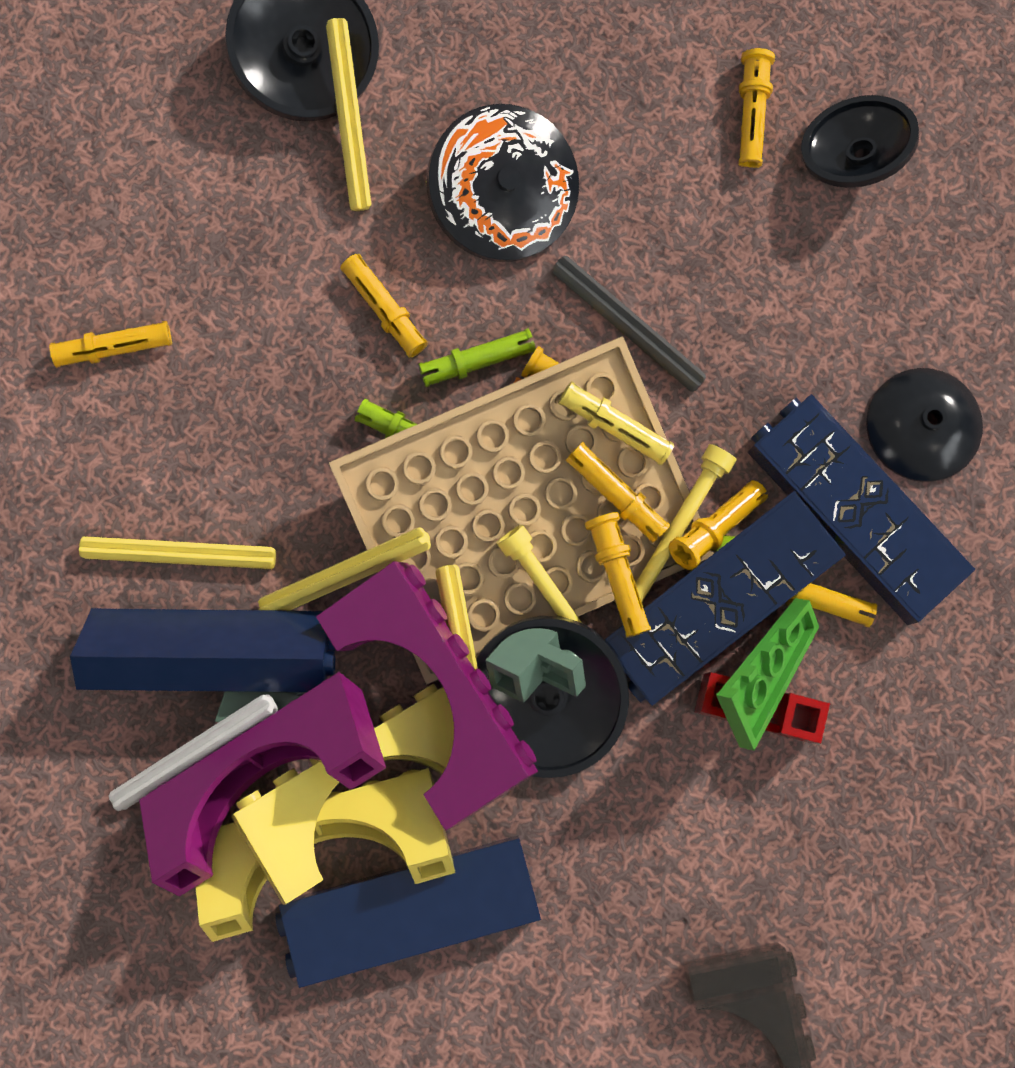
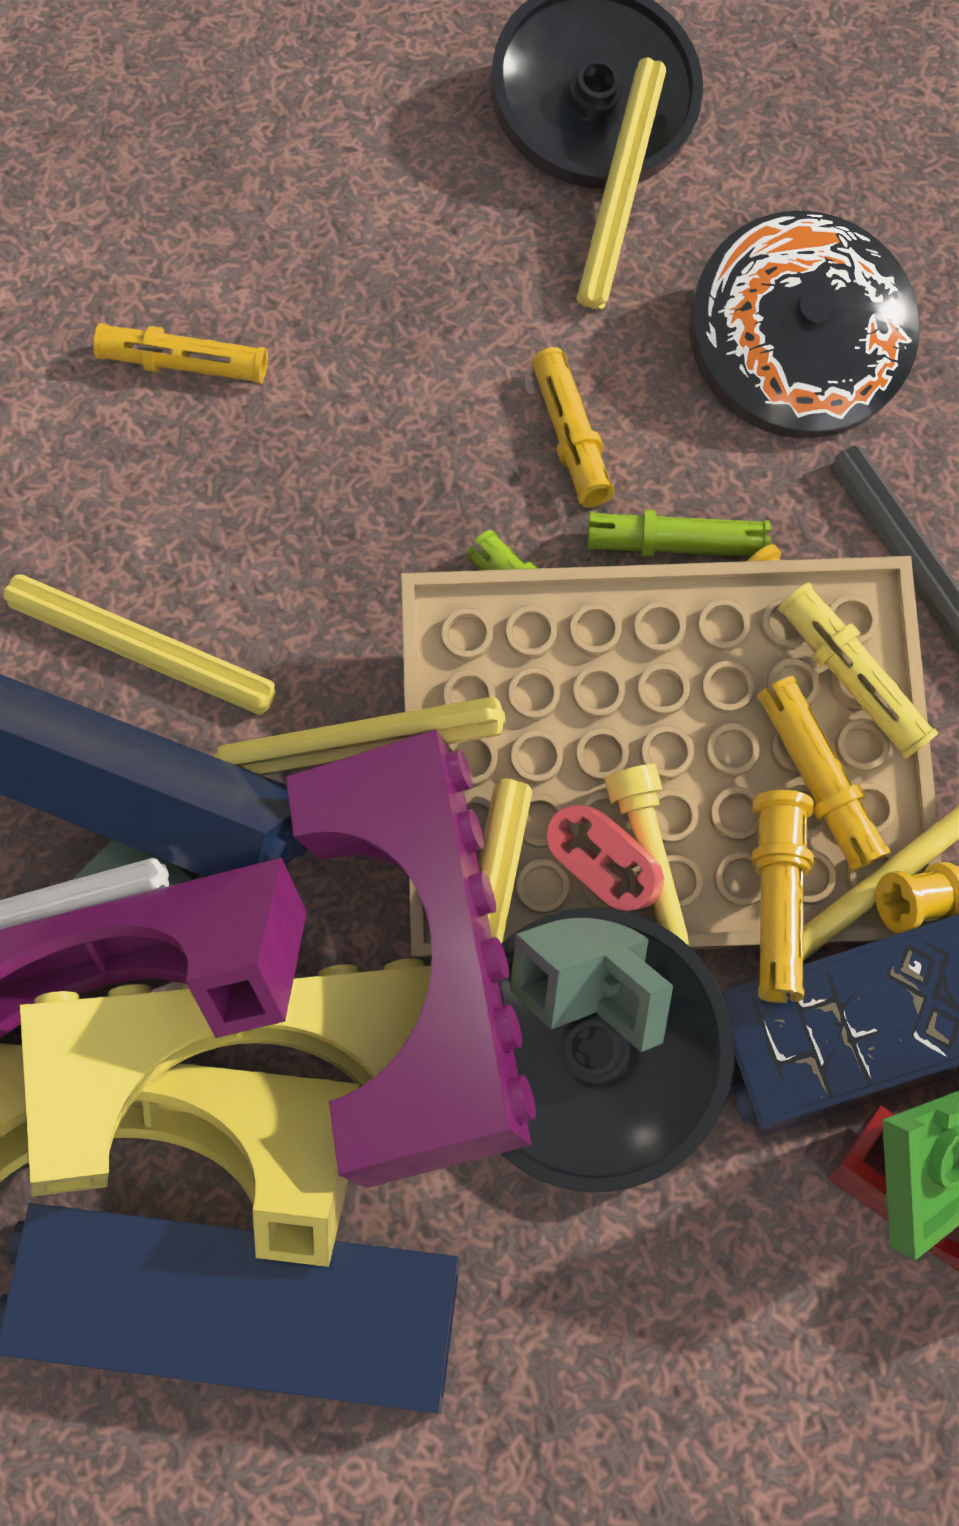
camera: 30 degrees right, 15 degrees down
(514, 591) = (594, 868): none -> coral beam

